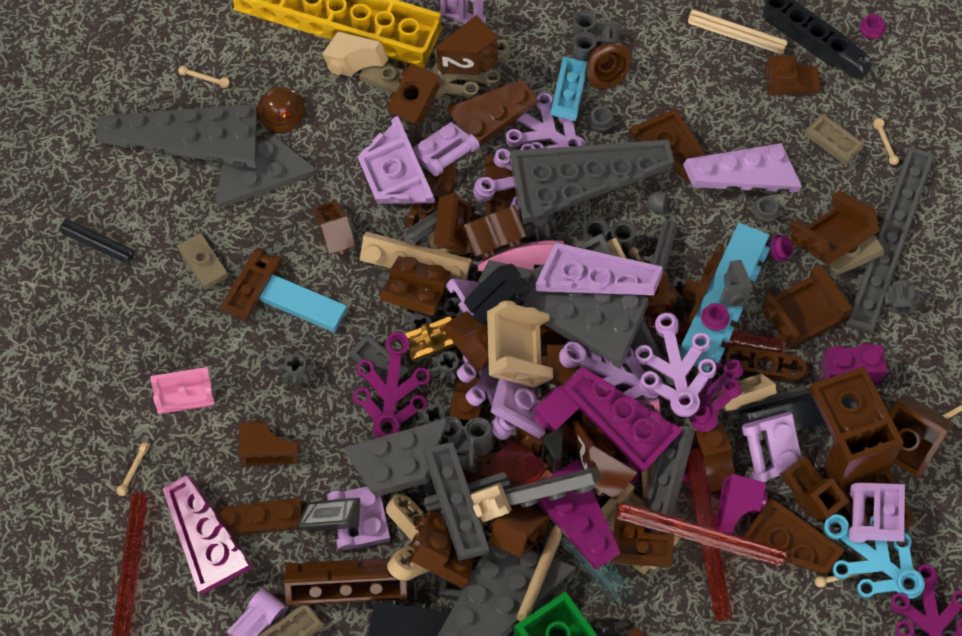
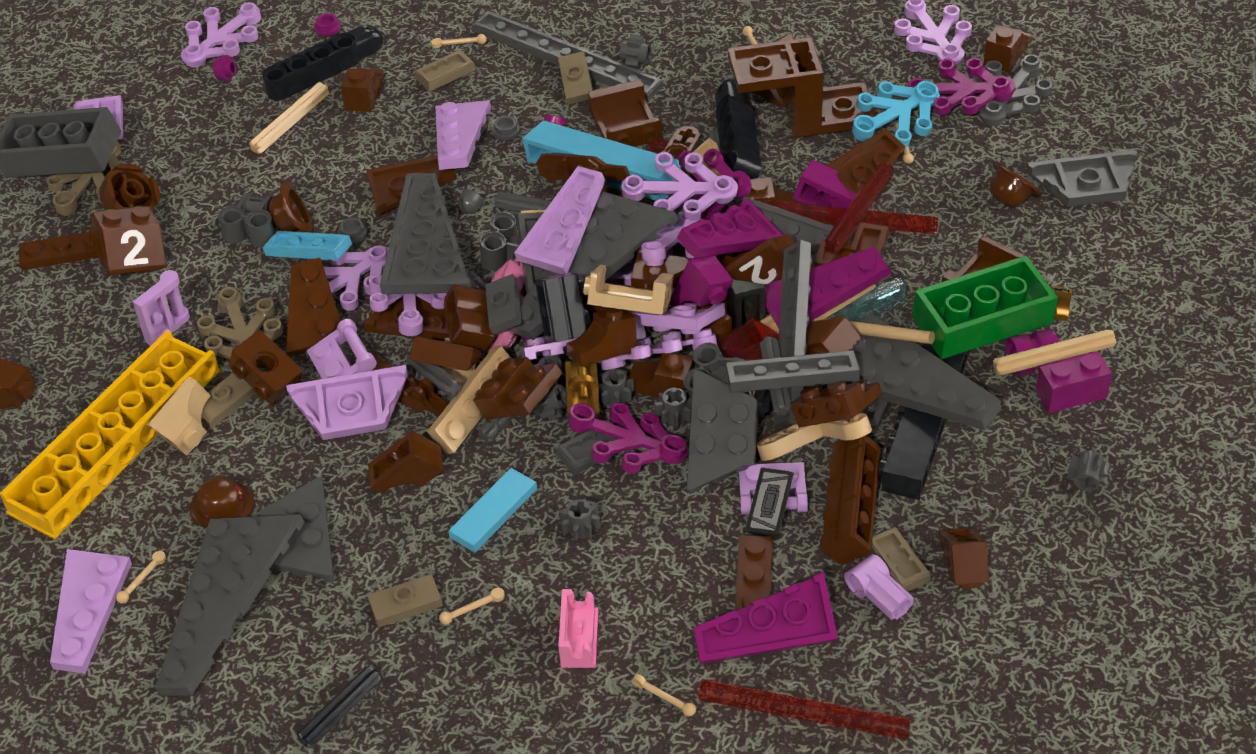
camera: 75 degrees left, 15 degrees down
(186, 46) = (85, 606): none -> lavender wing
(217, 325) = (497, 595): none -> tan hinge
(250, 284) = (454, 553): reddish brown plate -> none
(262, 448) = (668, 559): reddish brown arch -> none
(468, 49) = (233, 300): reddish brown slope -> none
(490, 502) = (800, 340): tan tile -> none
(502, 250) = (503, 304): none -> dark grey plate
(715, 317) = (636, 150): magenta plate -> none
(737, 285) = (603, 132): dark grey bracket -> none
(780, 441) = (770, 155): lavender plate -> none
(814, 495) = (827, 138): reddish brown brick -> none
(837, 230) = (549, 76): reddish brown panel -> none
(841, 360) = (698, 94): magenta brick -> none
(888, 512) = (858, 84): lavender plate -> none

